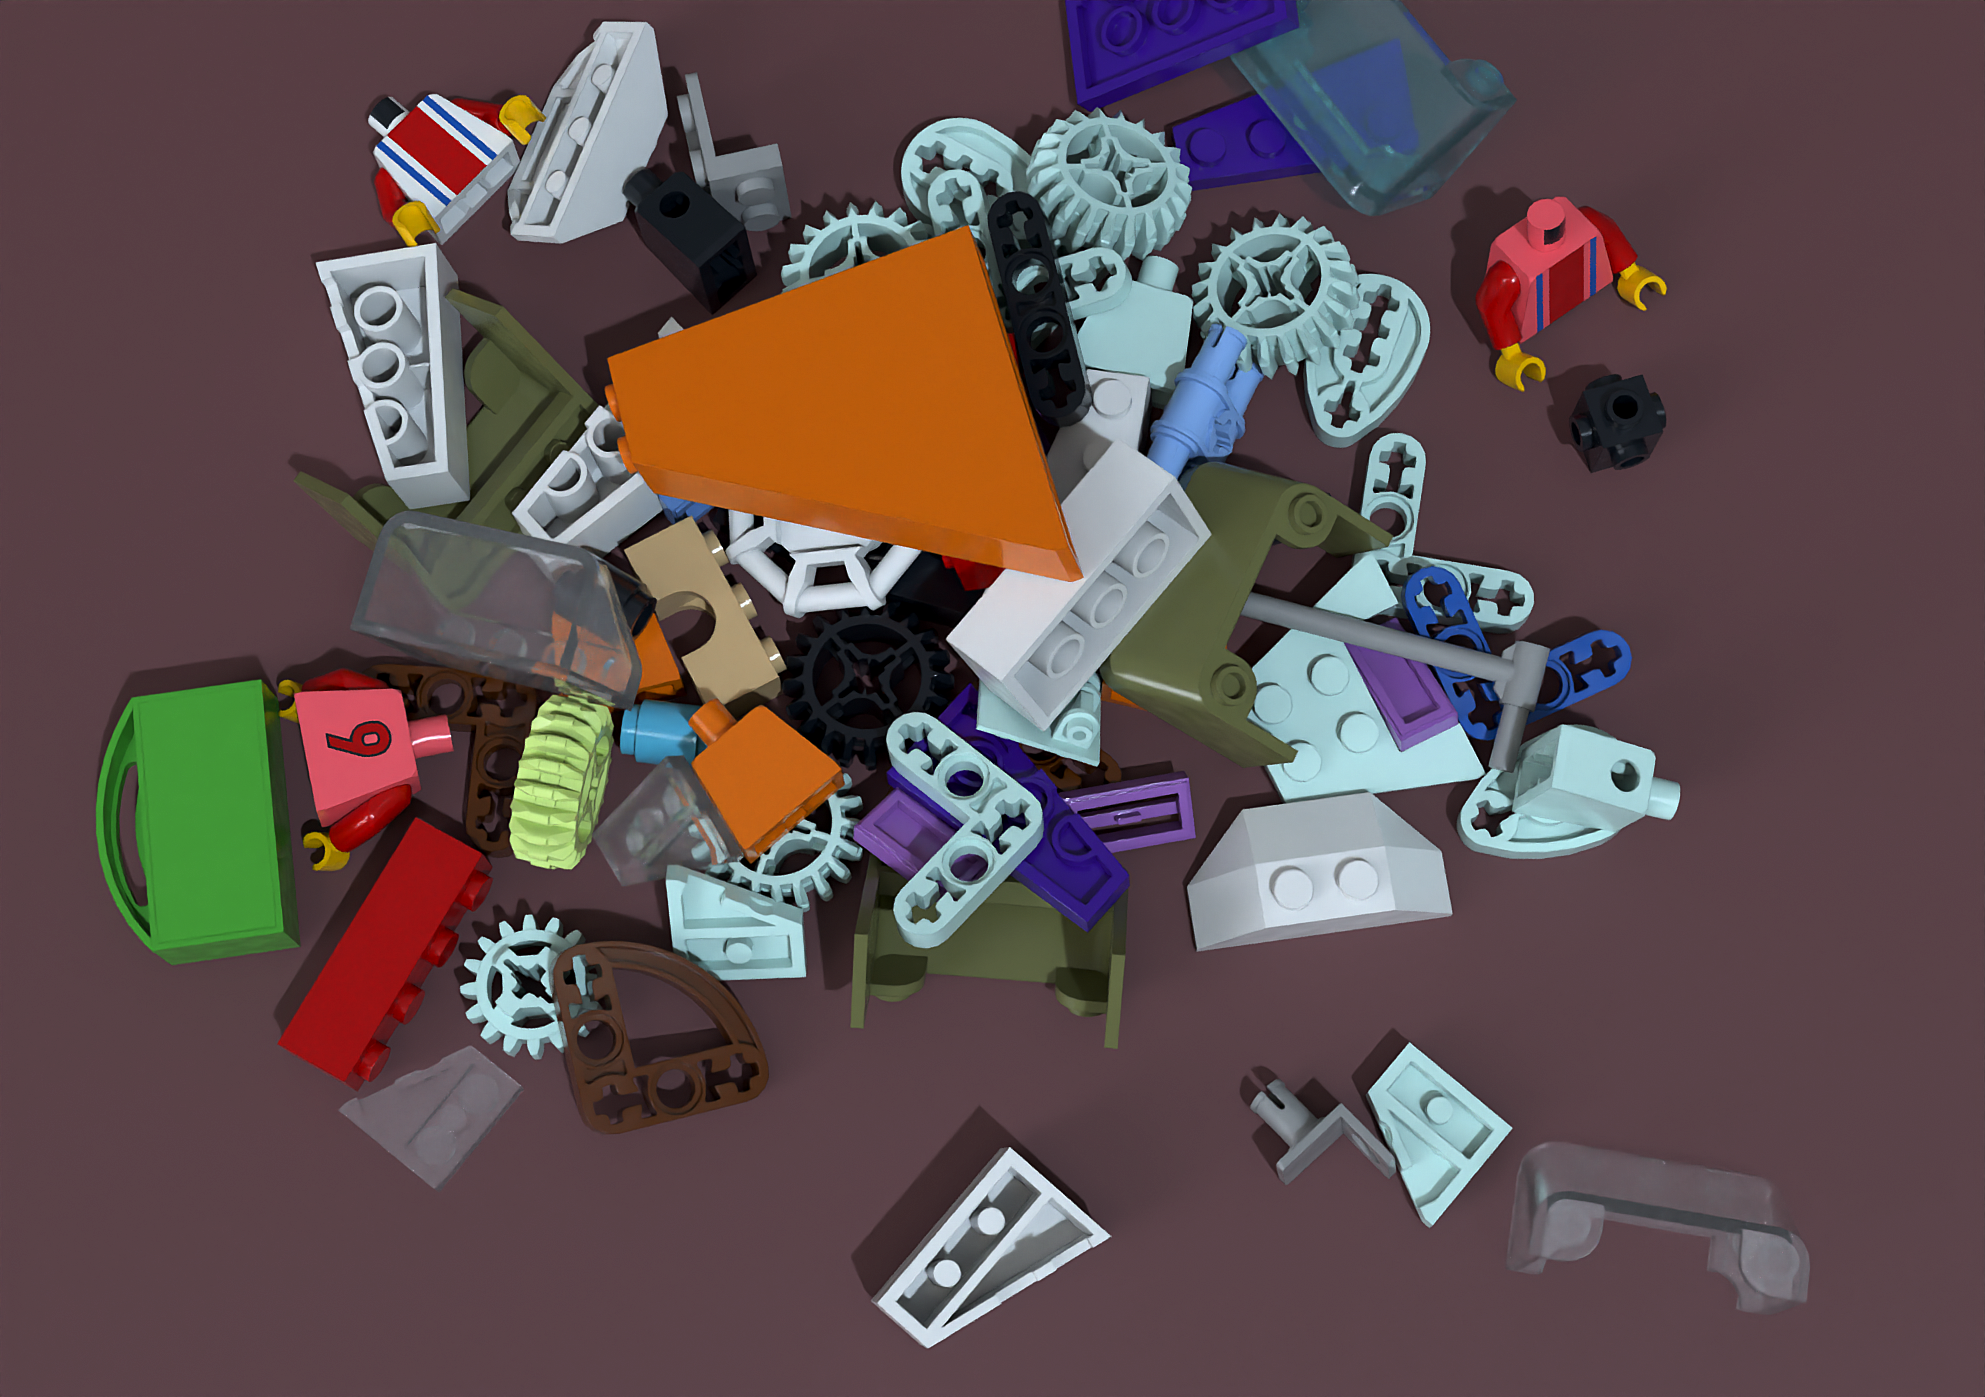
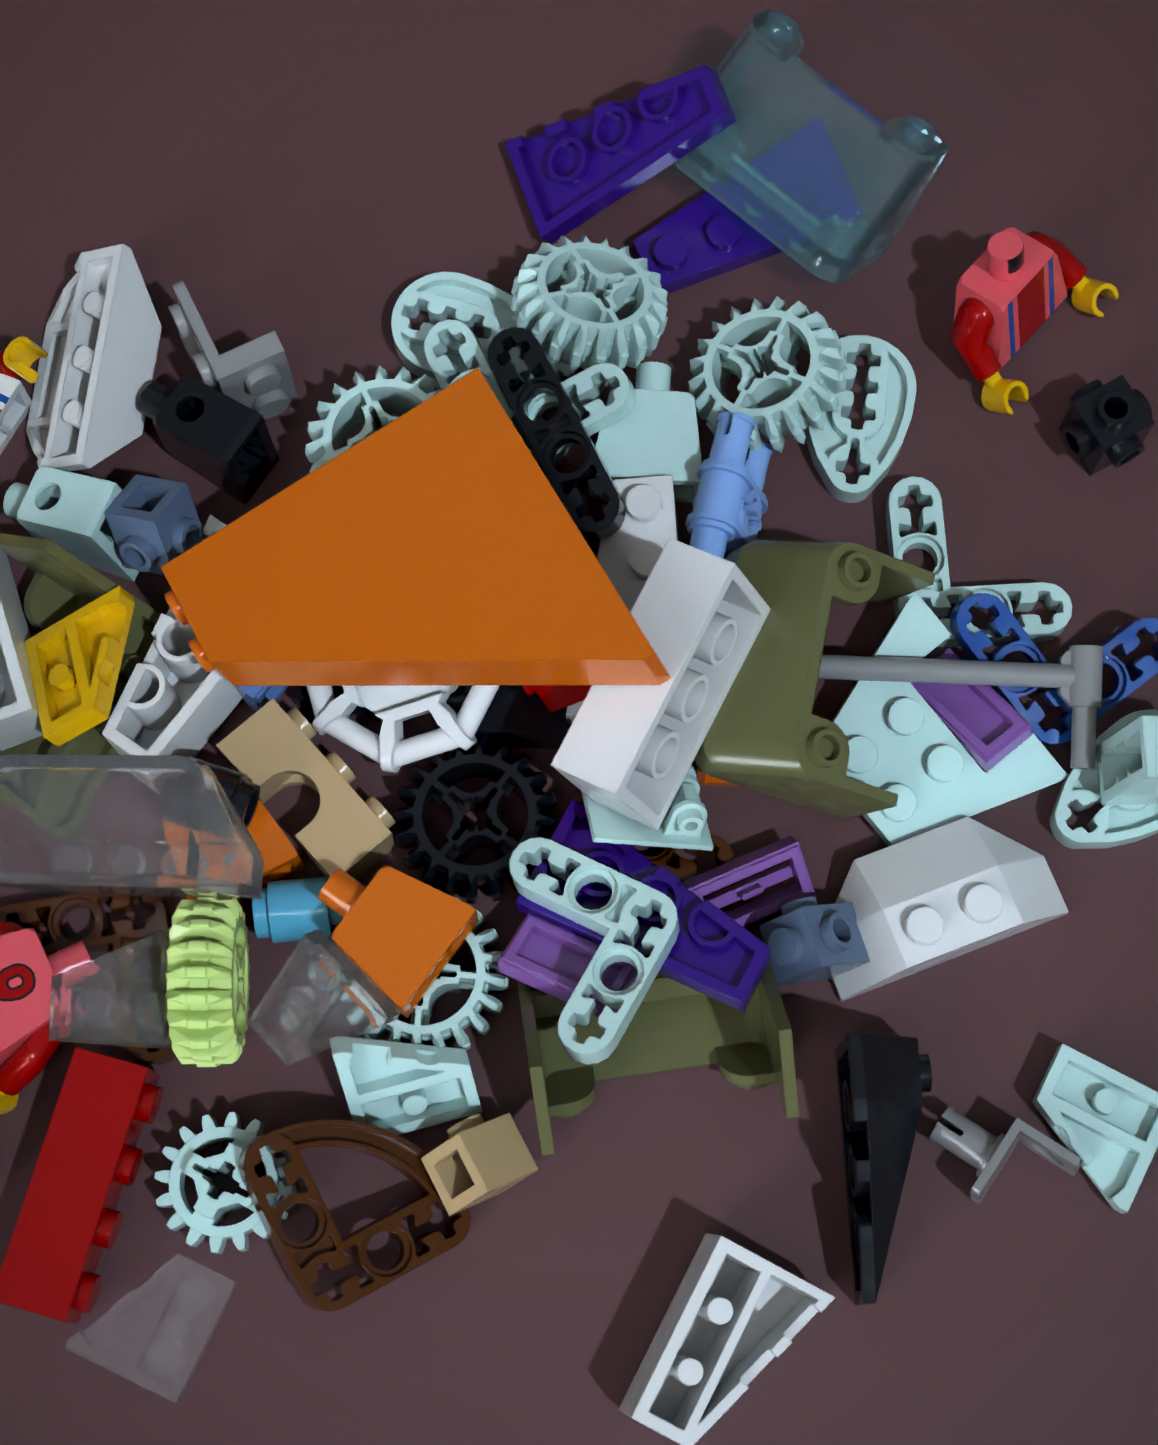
camera: 15 degrees left, 0 degrees up
(464, 777) = (115, 997): none -> clear wing
(504, 439) = (78, 665): none -> yellow wing
(533, 282) = (71, 514): none -> light aqua torso
(611, 311) = (153, 522): none -> sand blue brick
(788, 1023) = (478, 1161): none -> tan brick
(1179, 881) = (813, 941): none -> sand blue brick
(1207, 1061) = (879, 1116): none -> black wedge

